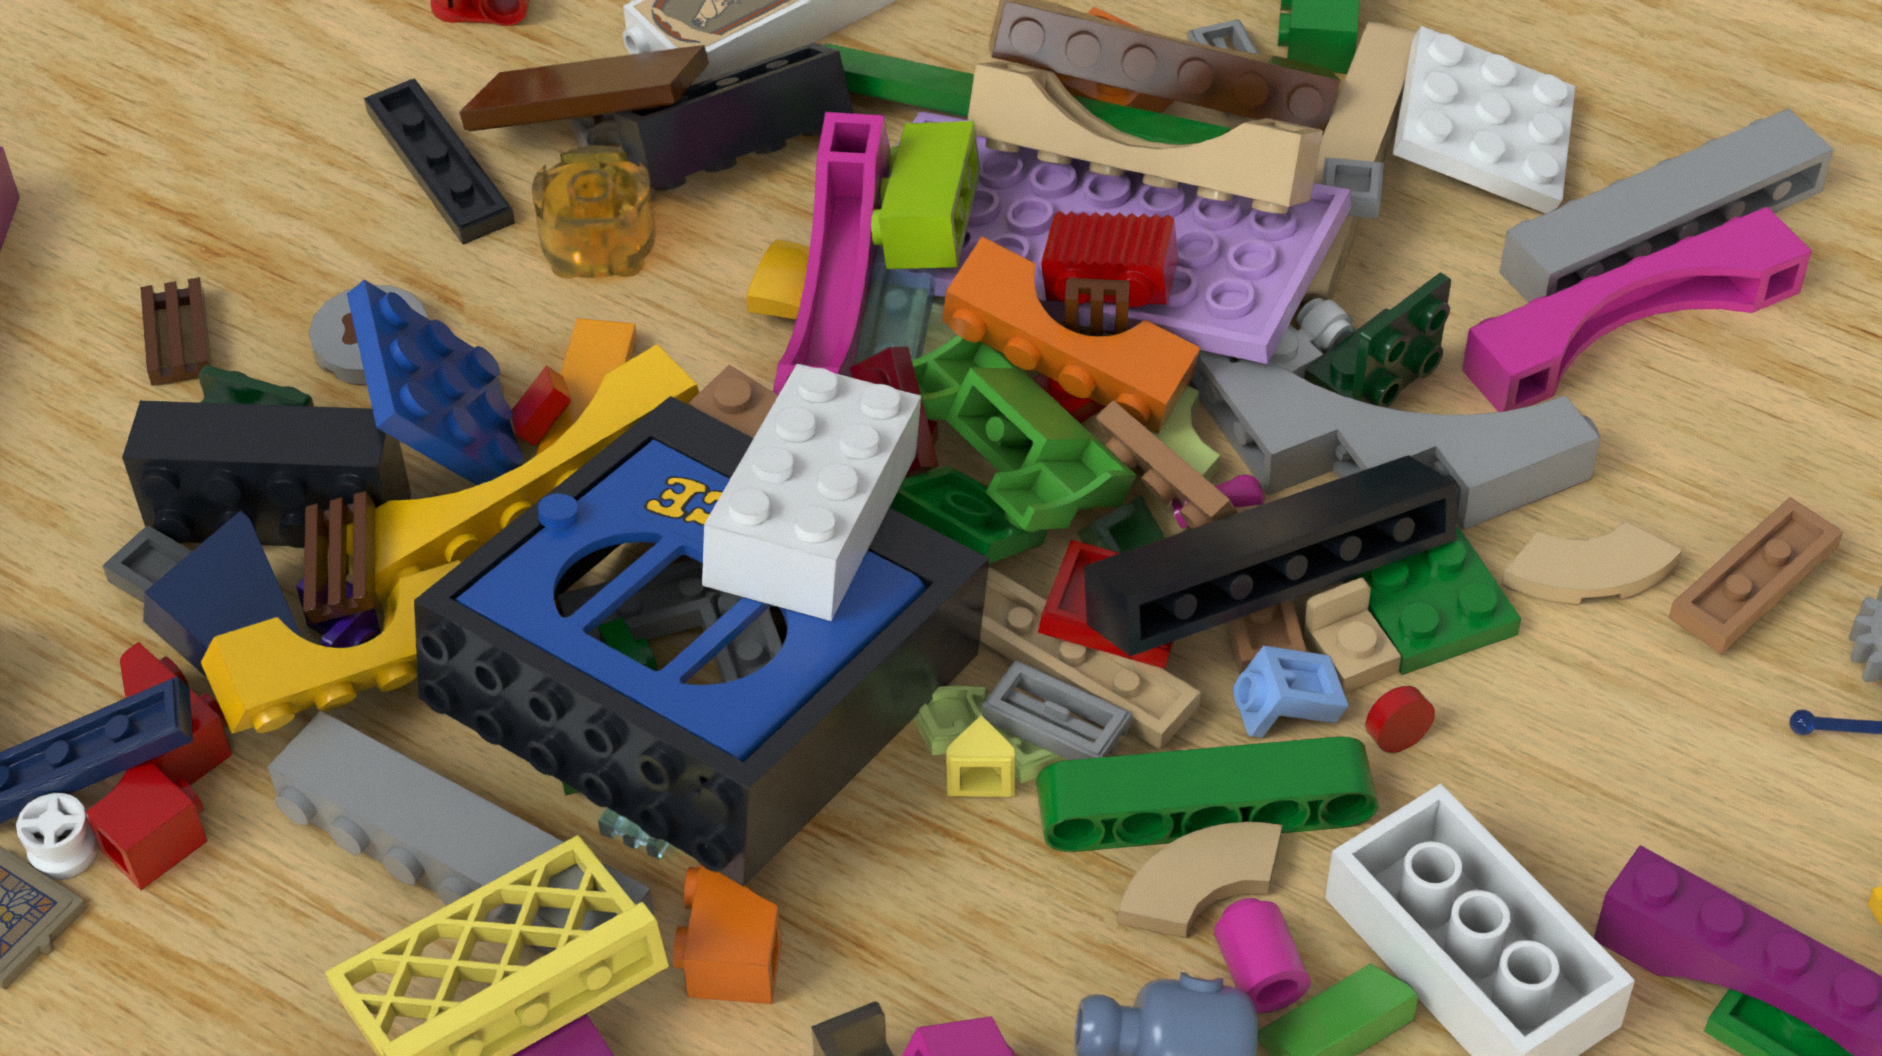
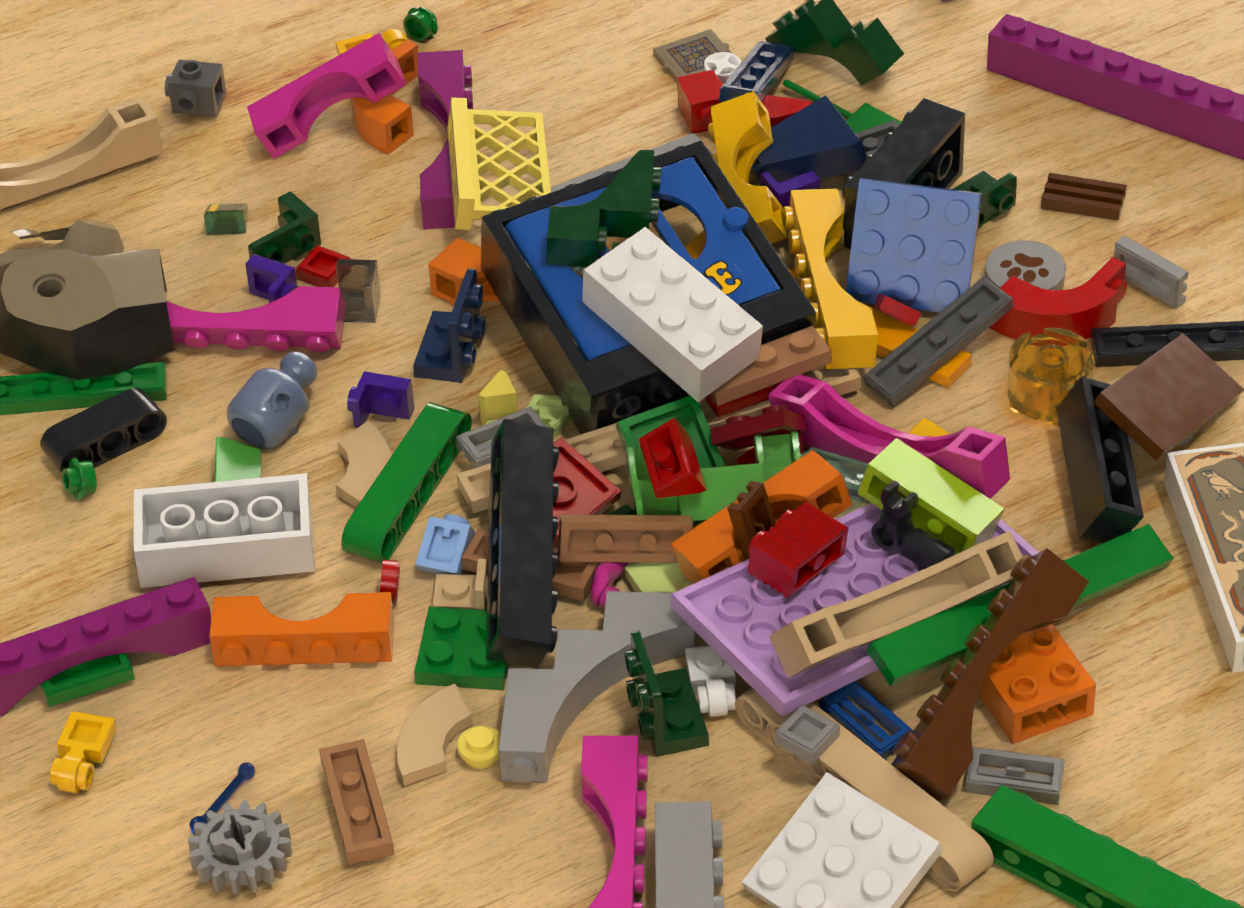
camera: 120 degrees right, 5 degrees down
(89, 624) = (862, 119): none -> green piece
(316, 558) = (807, 178): reddish brown tile -> none
(324, 204) = (1152, 272): none -> light grey tile
(440, 242) = (1071, 309): none -> red arch
(568, 324) = (938, 341): none -> dark grey tile
(645, 607) = (619, 211): none -> dark green arch
(883, 874) = (452, 336): none -> dark blue bracket
(997, 193) = (897, 530): none -> black bar
(1044, 438) = (671, 461): none -> red slope
(1069, 921) = (381, 396): none -> dark purple bracket
(1261, 954) = (293, 455): dark pink brick -> none
(1509, 707) = (350, 633): none -> orange arch
(1570, 506) = (479, 746): none -> light yellow plate

